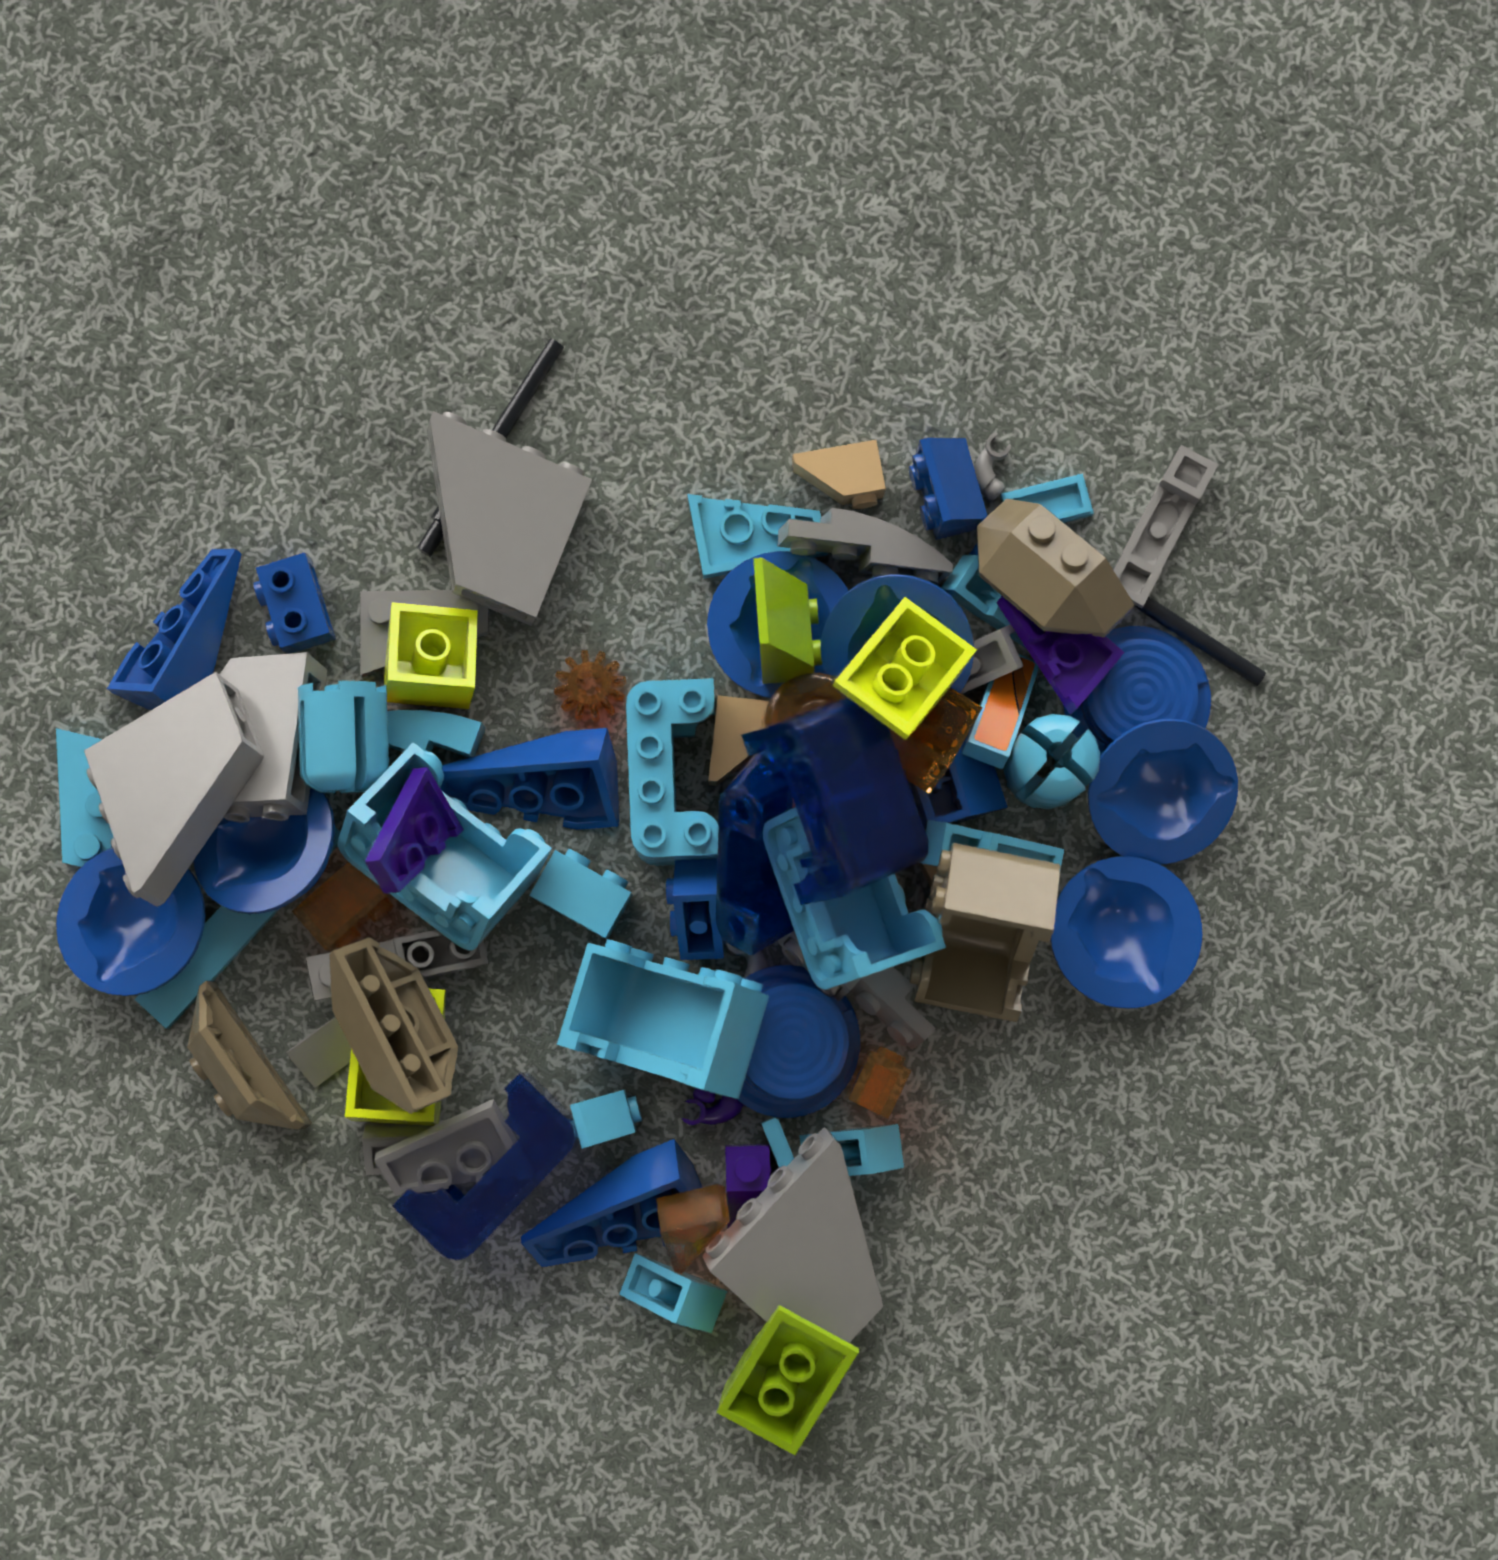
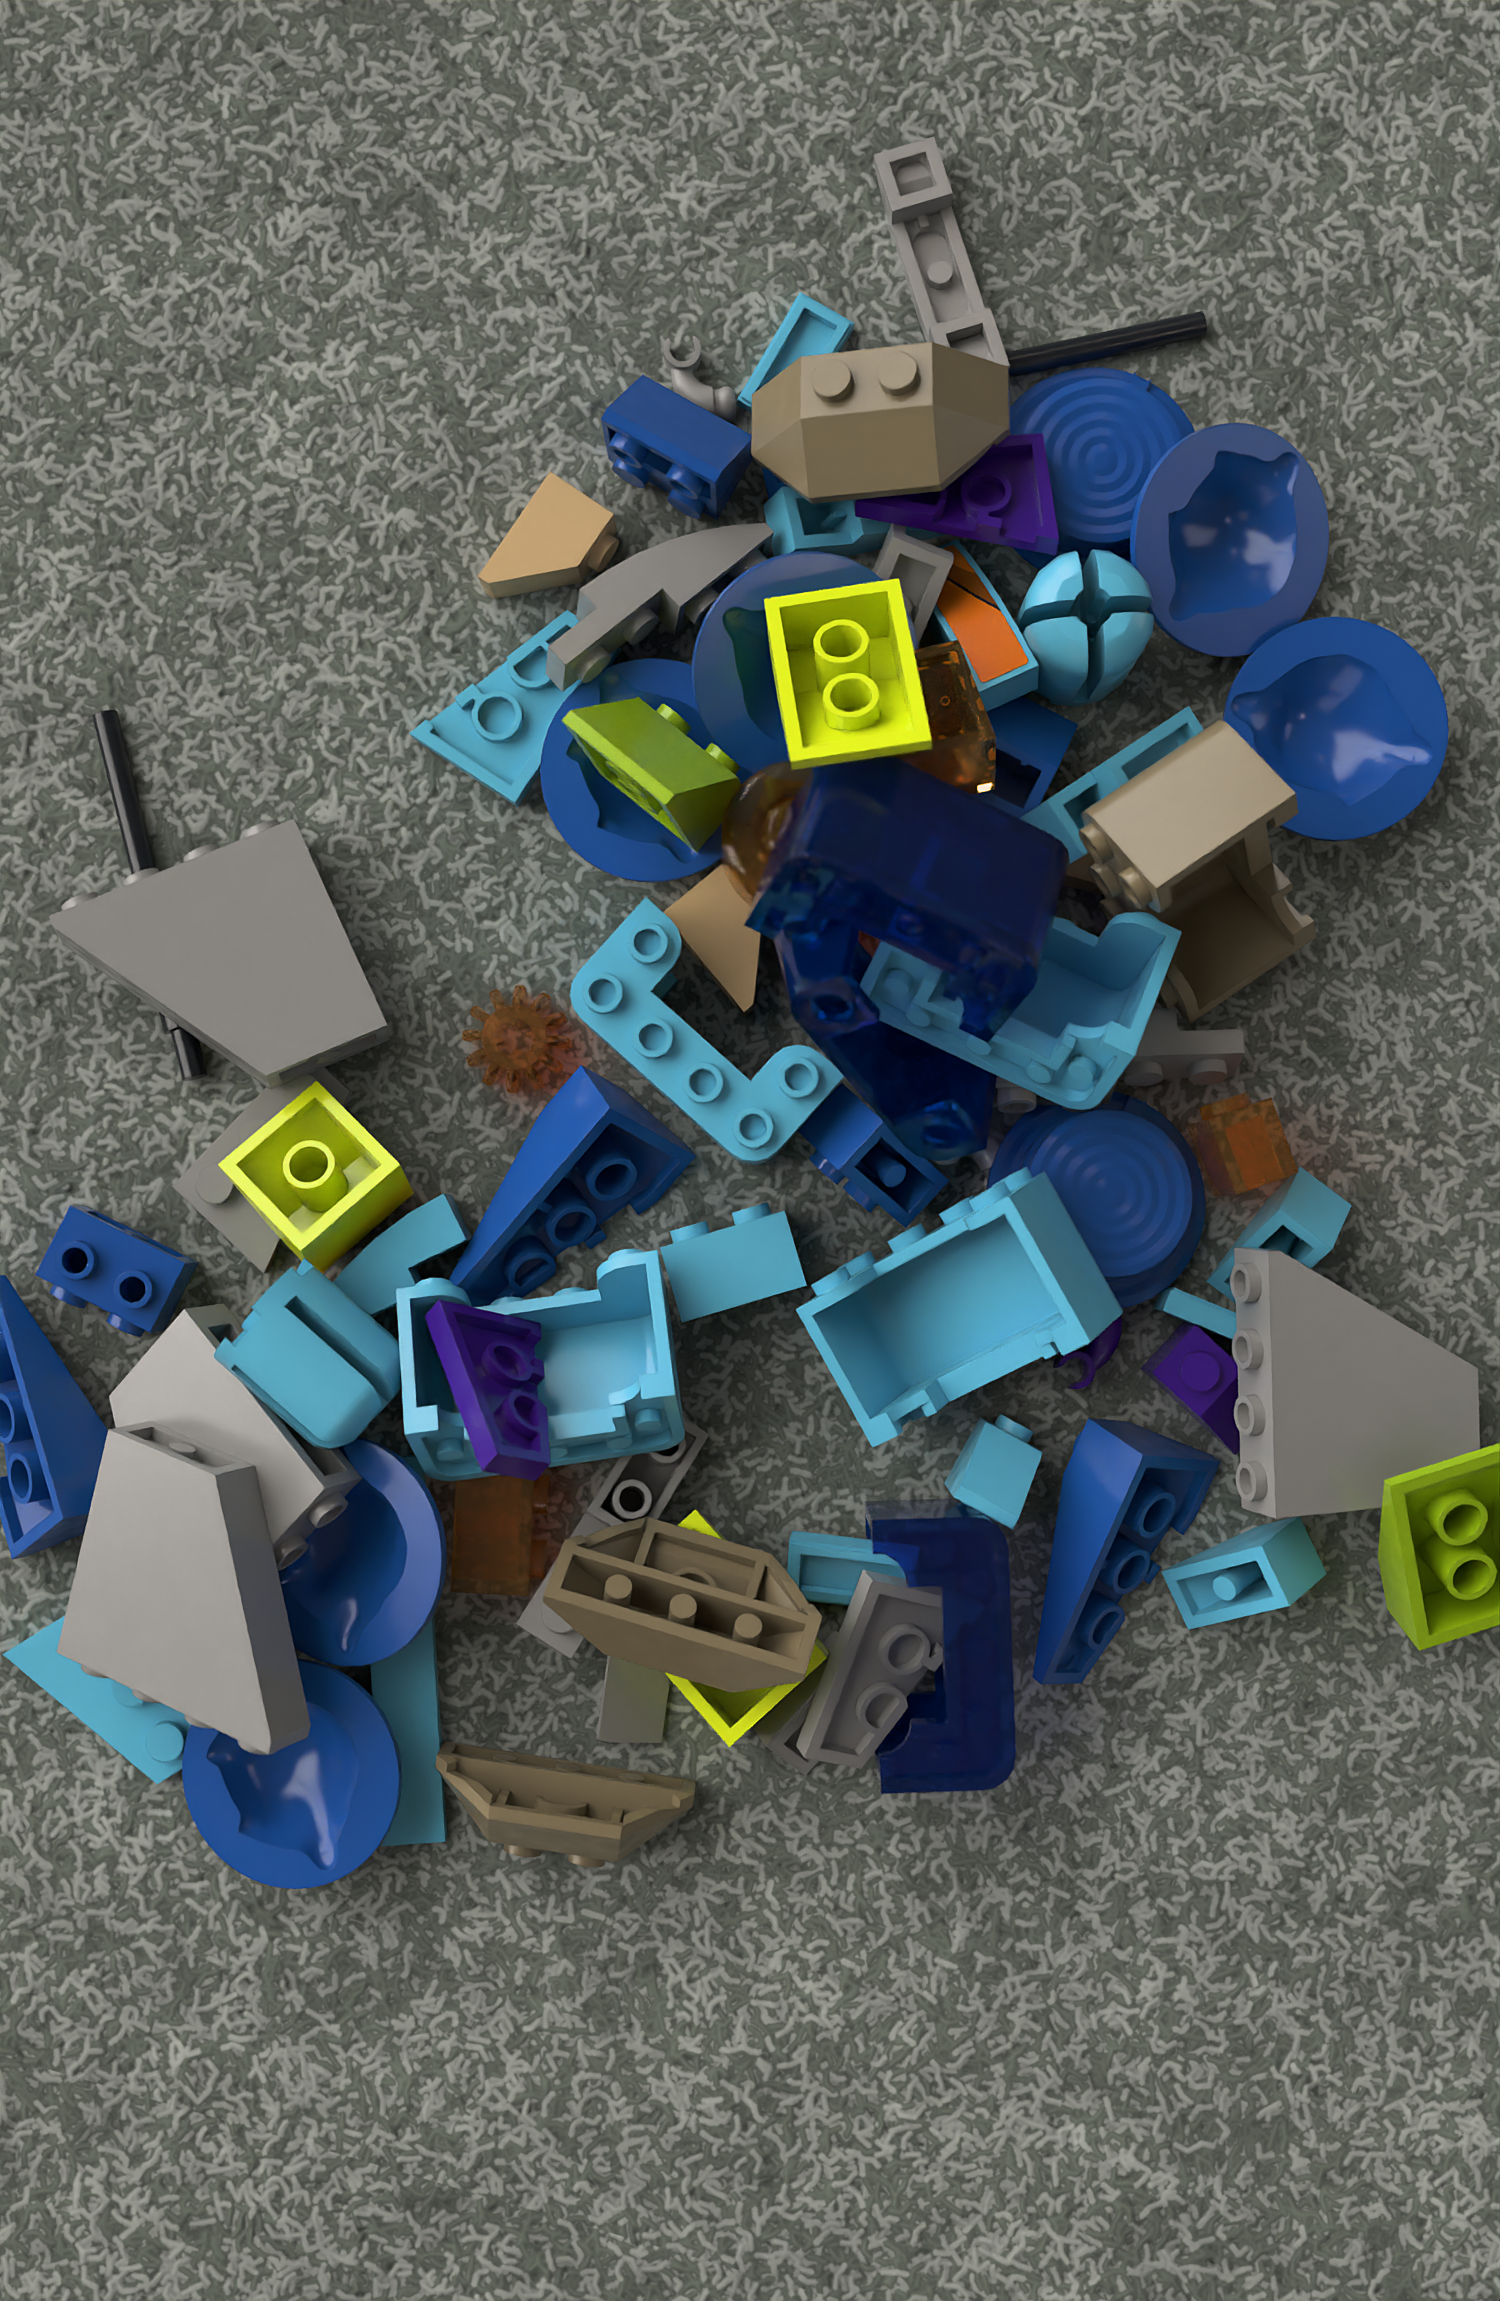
camera: 35 degrees left, 5 degrees up
(478, 1082) = (831, 1565): none -> medium azure tile
(691, 1222) = (1199, 1484): clear orange slope -> none

